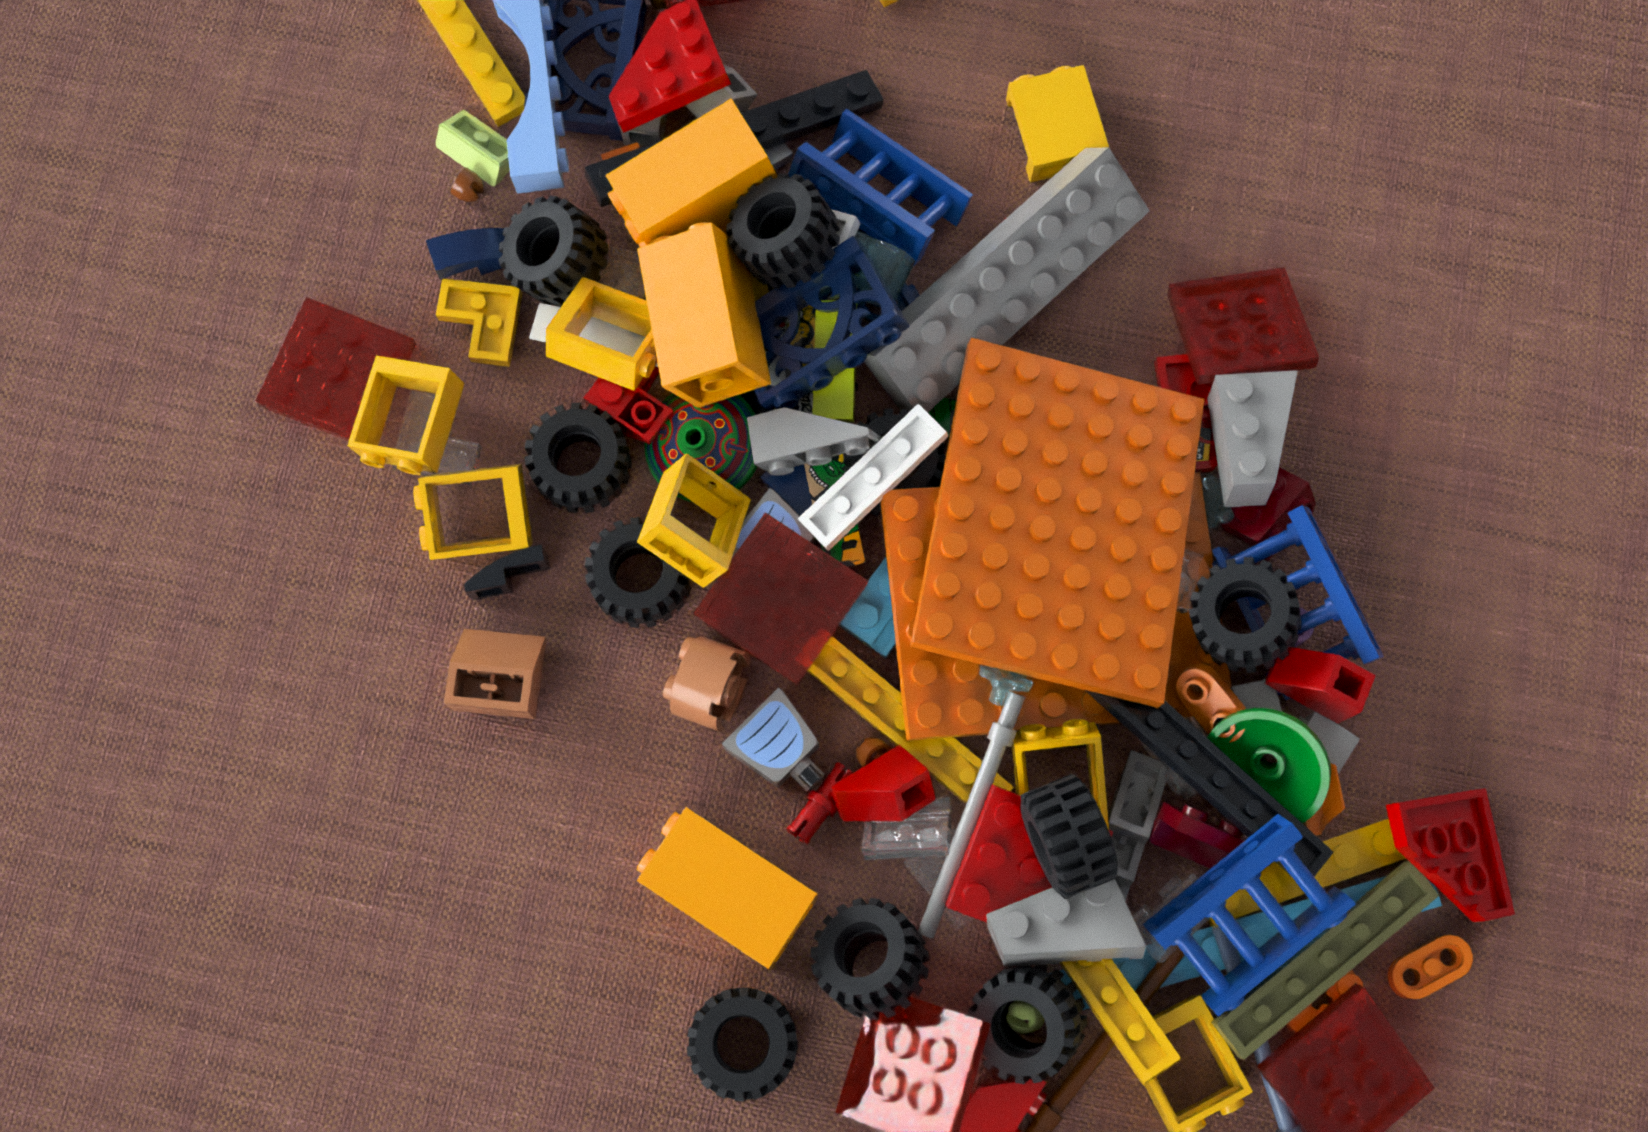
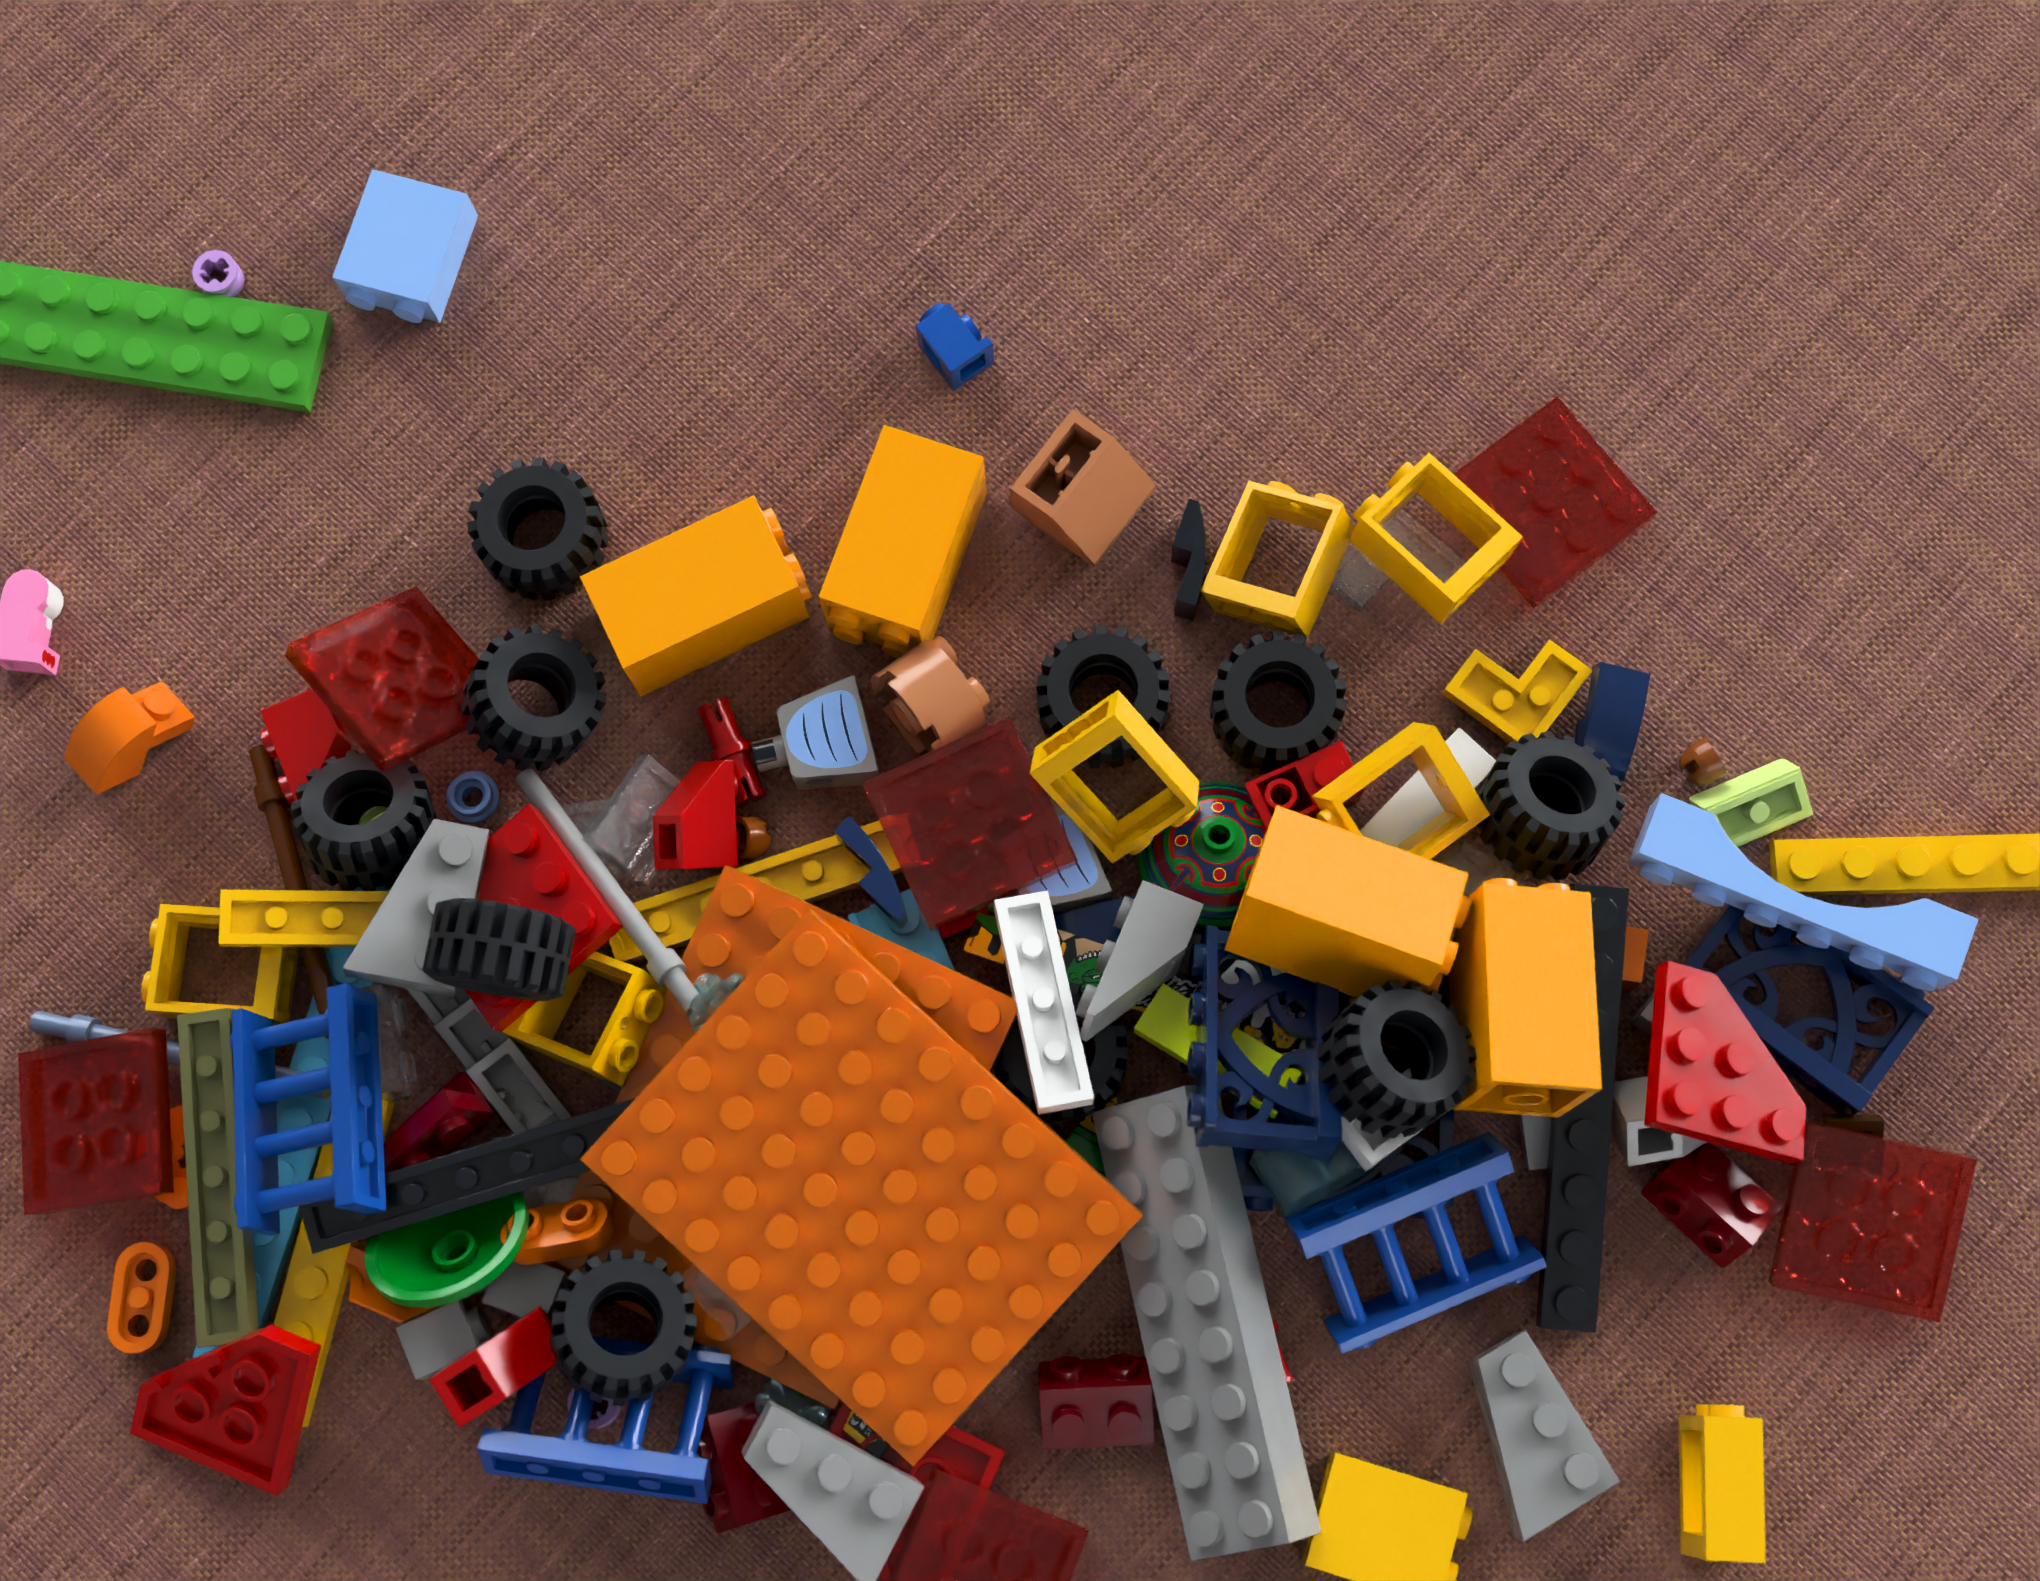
camera: 125 degrees right, 0 degrees up
(434, 831) = (953, 344): none -> blue brick
(606, 765) = (903, 542): none -> light orange brick
(749, 42) = (1712, 1203): none -> dark red bracket
(854, 637) = (879, 882): none -> dark blue slope
(950, 67) = (1536, 1437): none -> light grey wedge
(974, 967) = (462, 787): none -> medium blue plate
(1090, 324) = (1095, 1402): none -> dark red bracket

